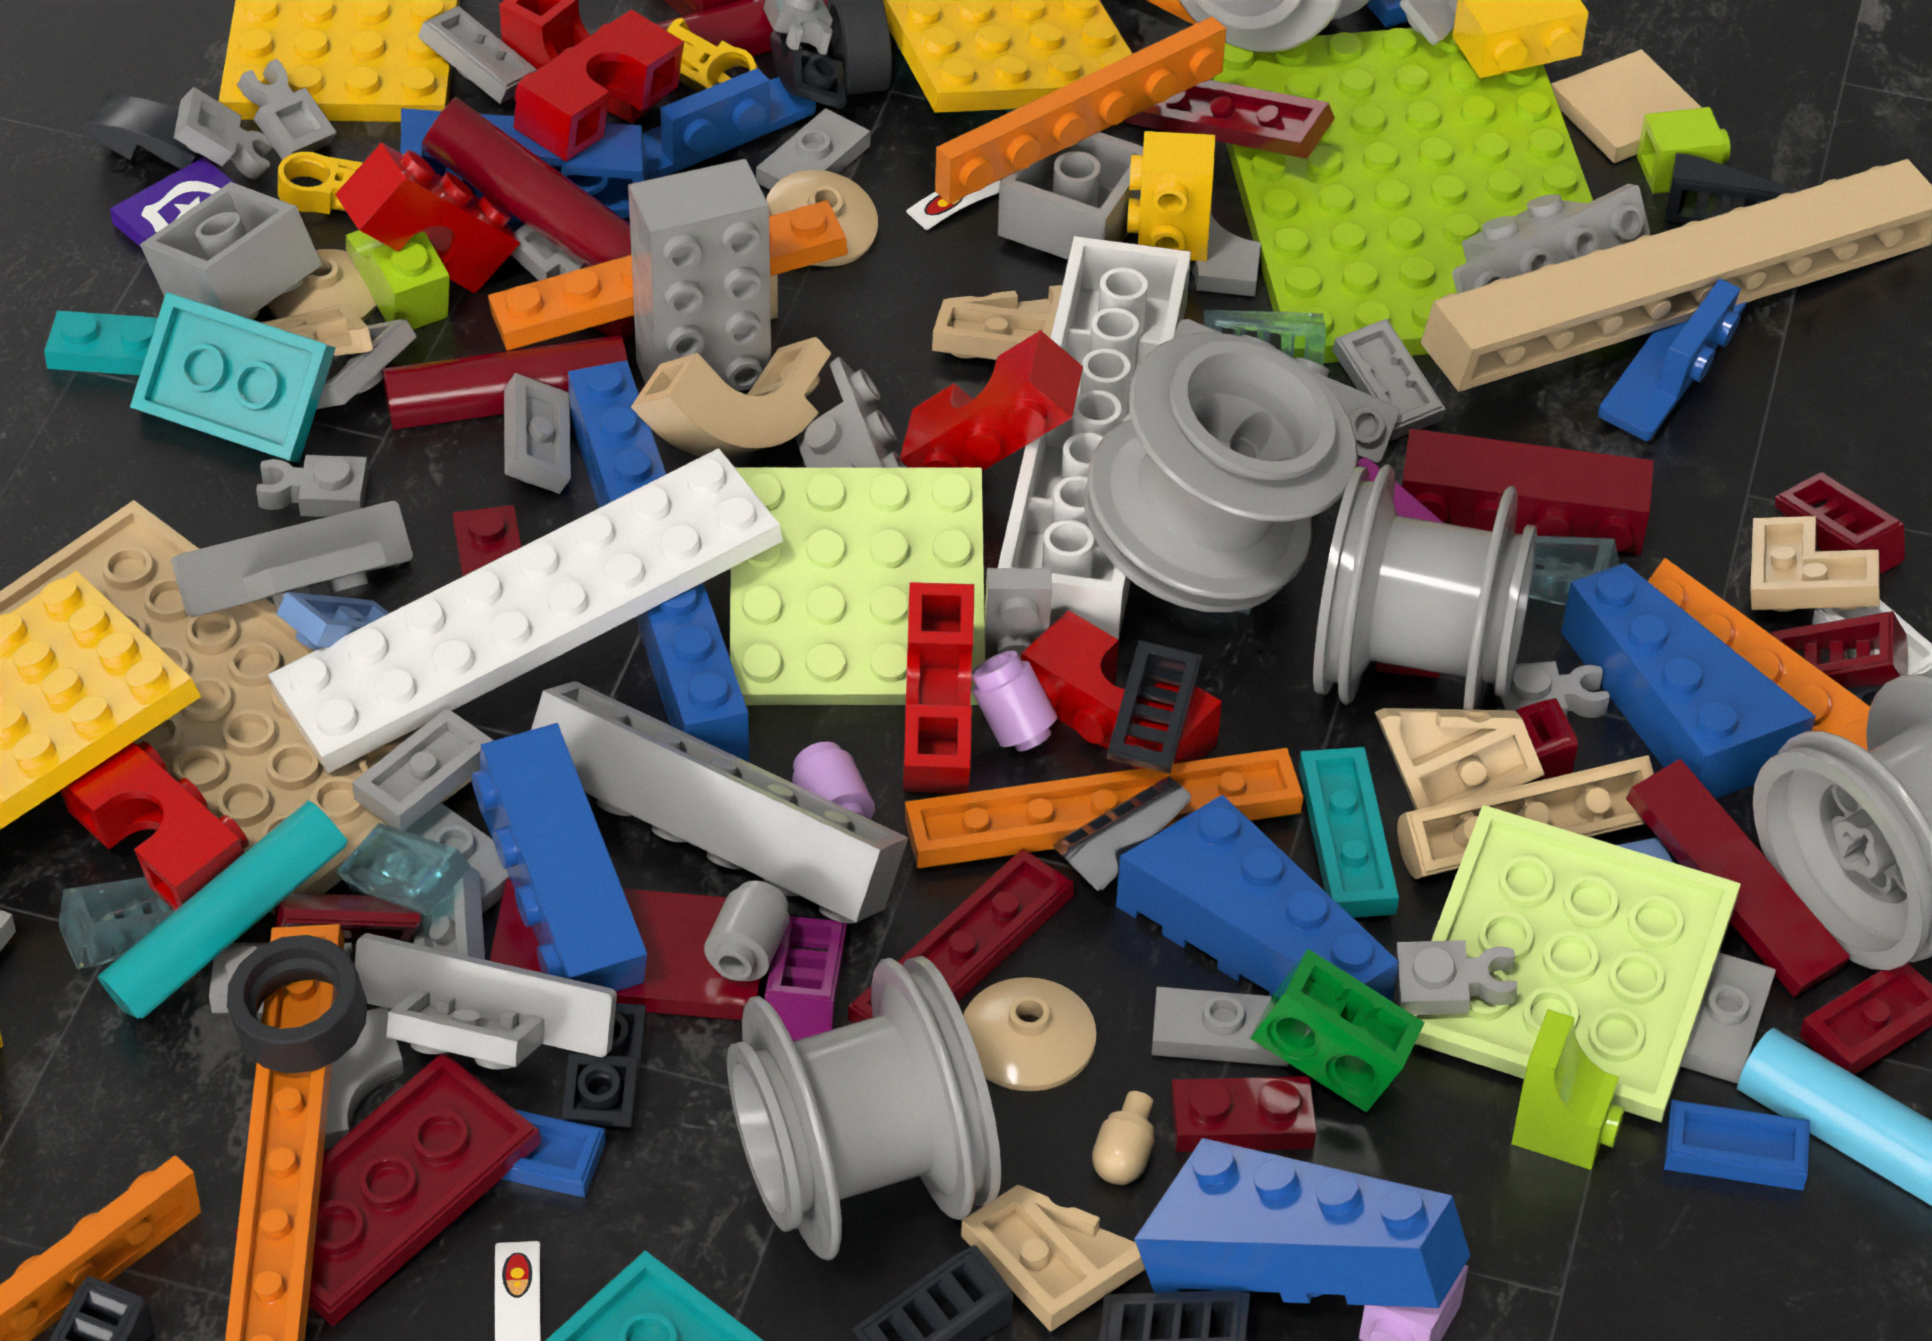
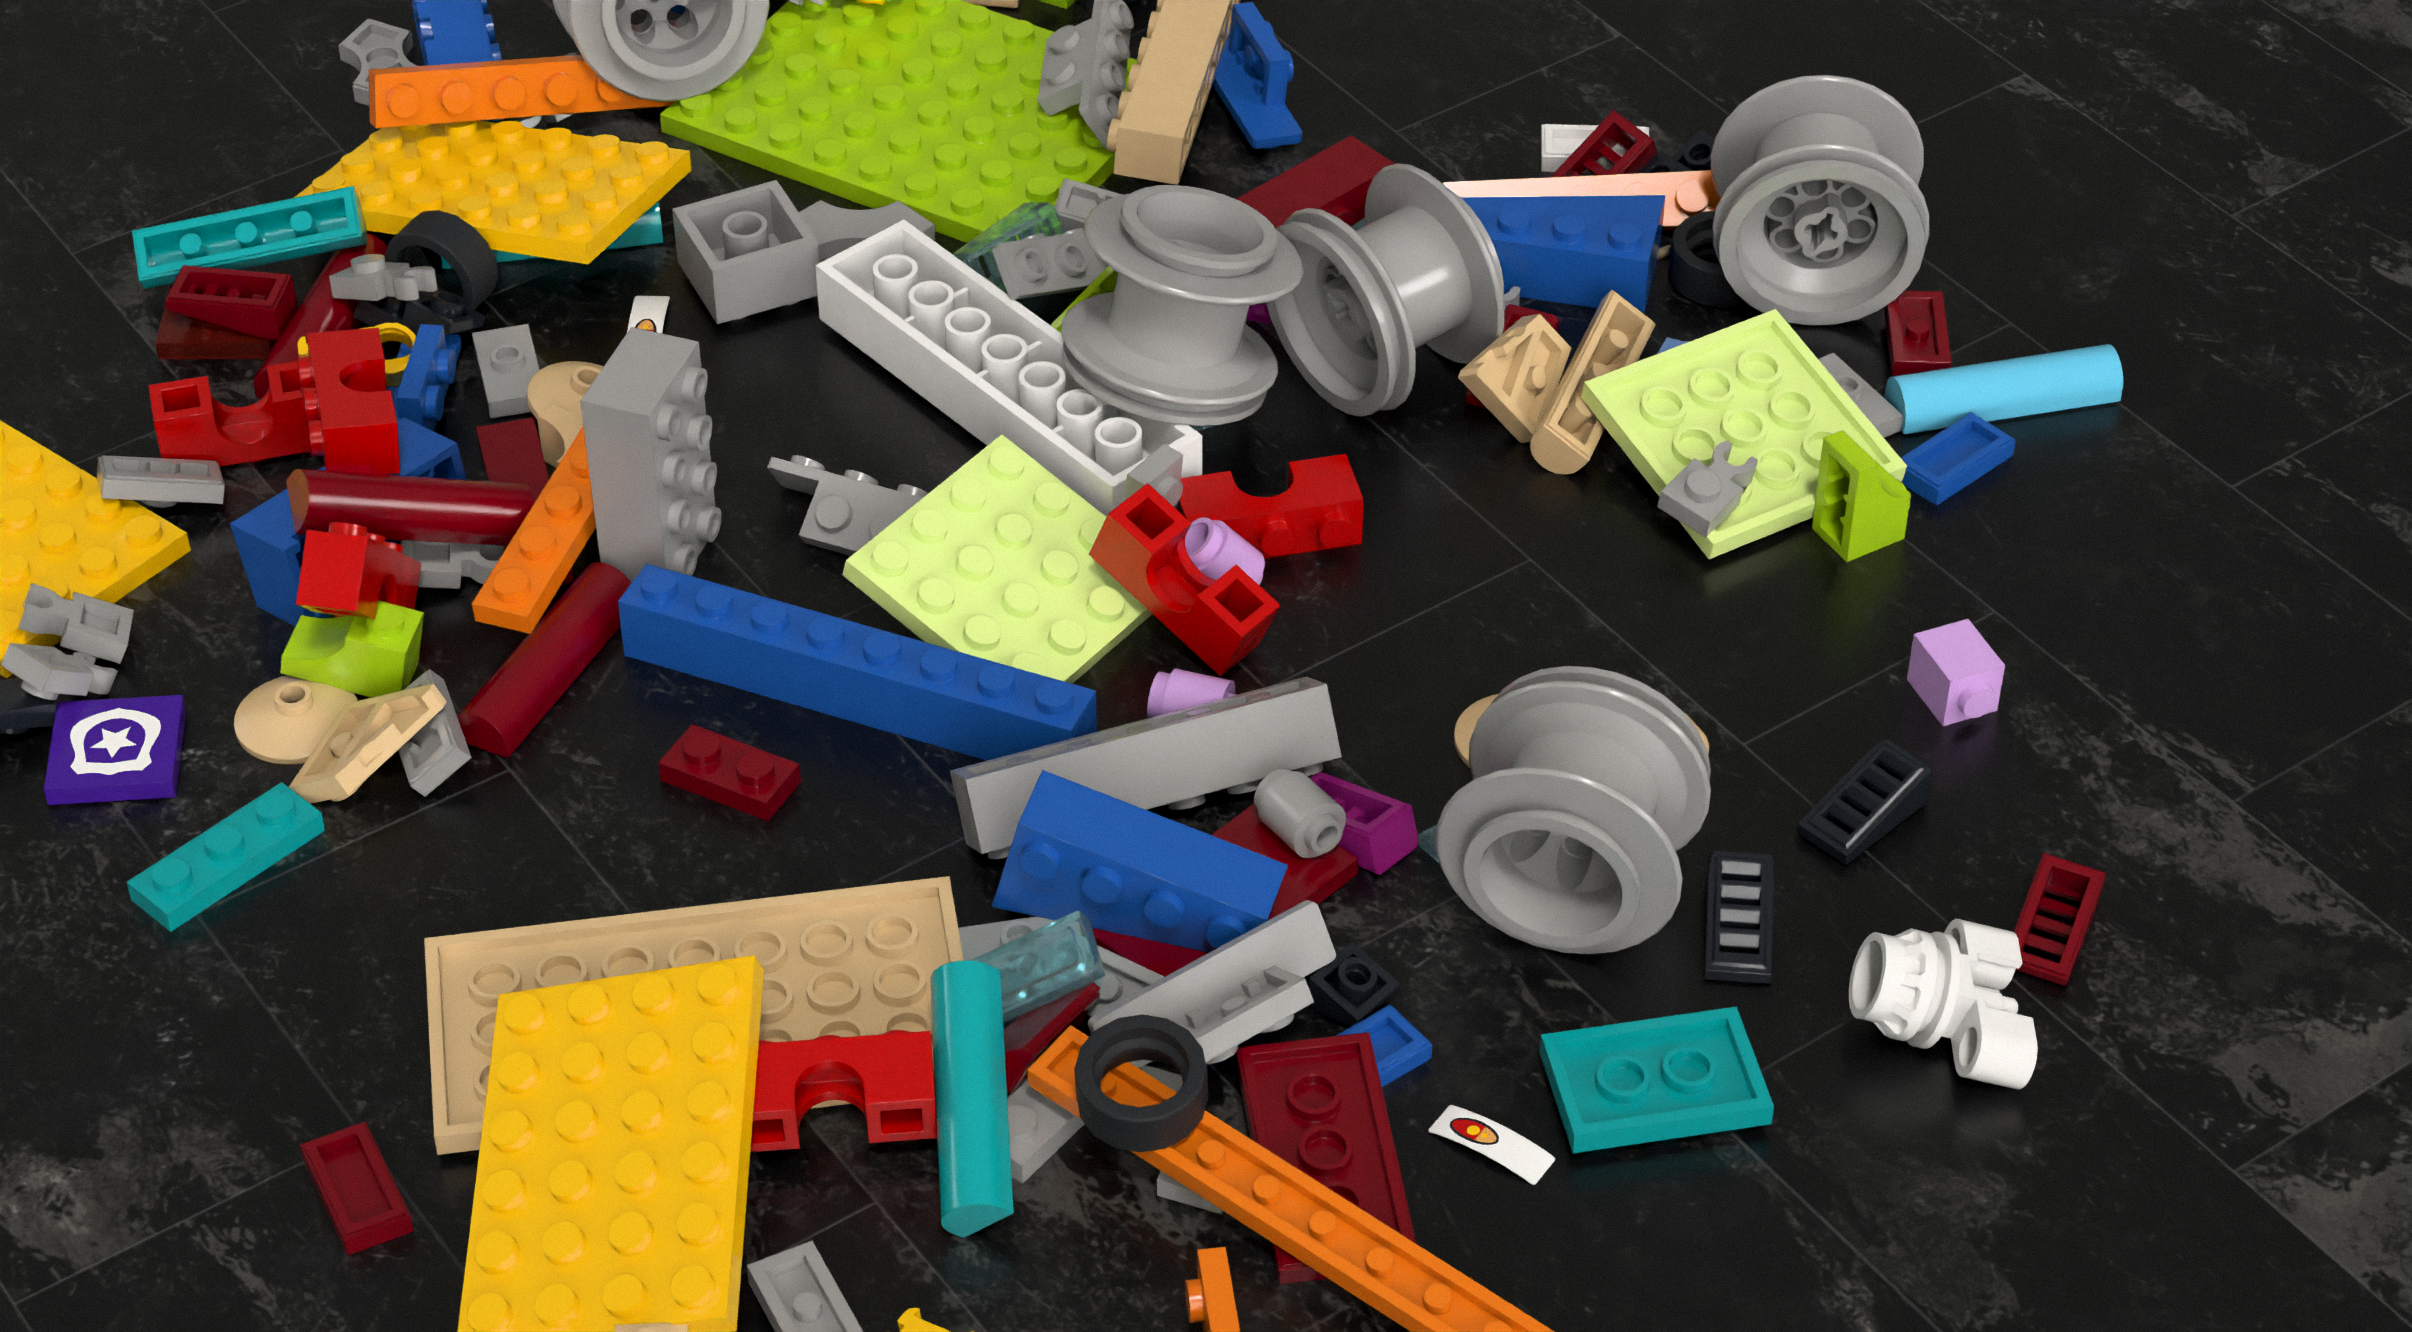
camera: 50 degrees left, 5 degrees down
(90, 922) = (873, 1187): clear light blue slope -> none
(232, 377) = (364, 803): plate -> none
(233, 251) = (225, 730): light grey brick -> none
(293, 559) = (632, 867): light grey bracket -> none
(320, 198) = (203, 637): yellow piece -> none
(321, 487) = (526, 824): light grey plate -> none
(326, 619) = (725, 878): medium blue plate -> none
(421, 770) = (946, 903): light grey plate -> none
(524, 609) = (852, 759): white plate -> none
(537, 433) = (625, 665): light grey plate -> none
(701, 413) = (761, 529): tan arch -> none
(986, 926) = (1406, 723): dark red tile -> none
(991, 323) = (825, 369): tan wing -> none
(1024, 399) = (977, 371): red arch -> none
(1042, 813) = (1359, 575): orange plate -> none
(1050, 1253) = (1751, 821): tan wing -> none
(1079, 110) = (709, 183): orange plate -> none
(1099, 844) = (1408, 585): slope -> none
(1163, 665) = (1317, 447): black slope -> none
(1175, 192) = (839, 189): yellow brick -> none
(1209, 1026) = (1616, 632): light grey plate -> none
(1242, 117) = (771, 132): dark red plate -> none
(1244, 902) = (1555, 553): blue wedge -> none
(1244, 1112) = (1705, 666): dark red plate -> none
(1300, 1231) = (1872, 674): blue wedge -> none
(1337, 1030) = (1705, 565): green brick -> none
(1348, 831) = (1510, 474): teal plate -> none
(1766, 908) = (1704, 310): dark red tile -> none
(1793, 575) = (1516, 143): tan plate -> none
(1854, 514) = (1480, 102): dark red slope -> none

